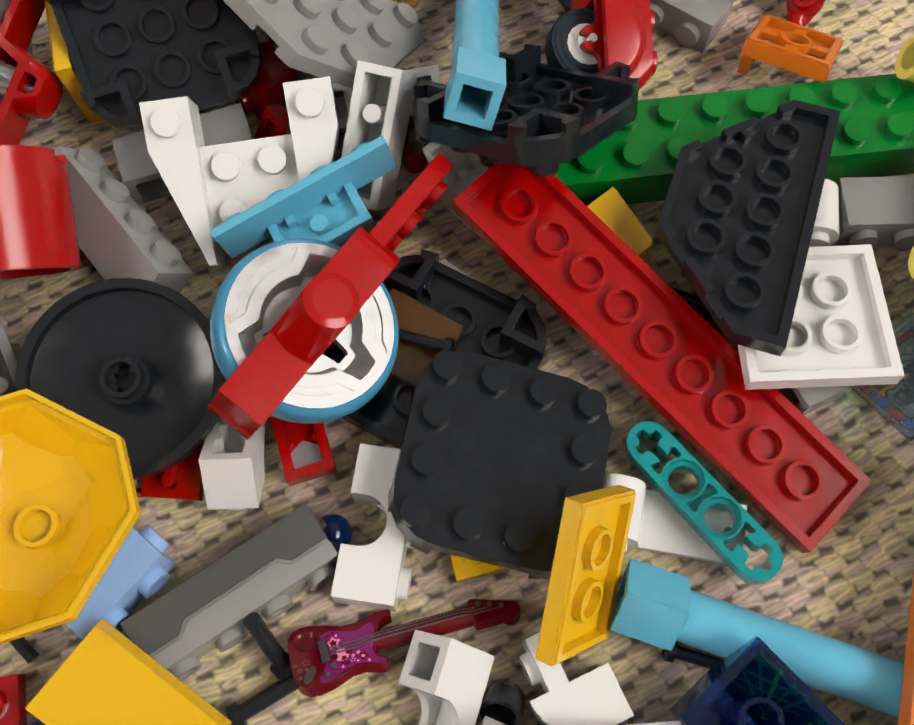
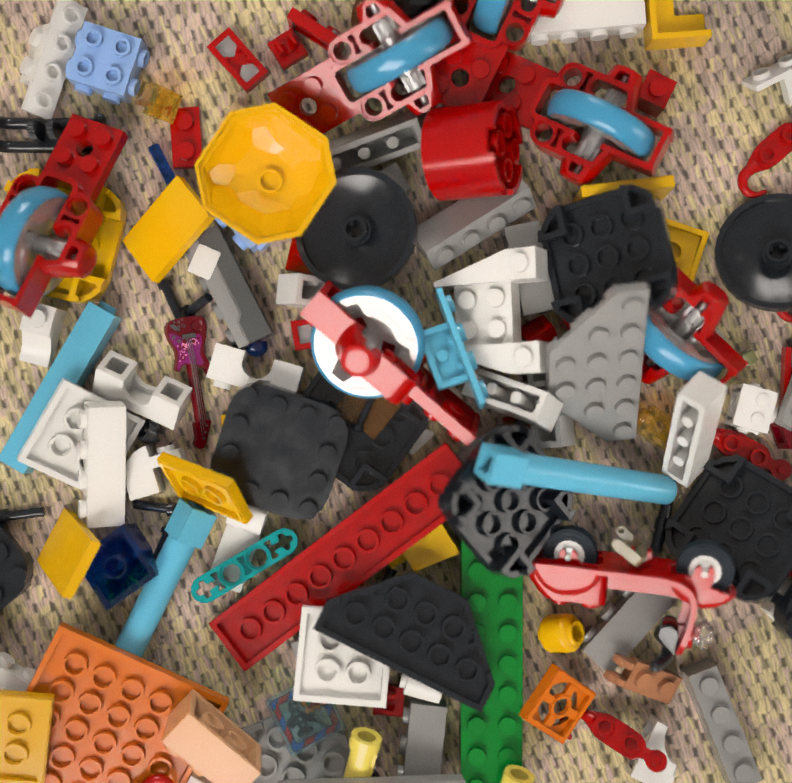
camera: 100 degrees right, 20 degrees up
(187, 636) = (204, 261): none -> white sticker
(633, 675) = (155, 507): none -> black piece
(695, 60) = (561, 633): none -> yellow head

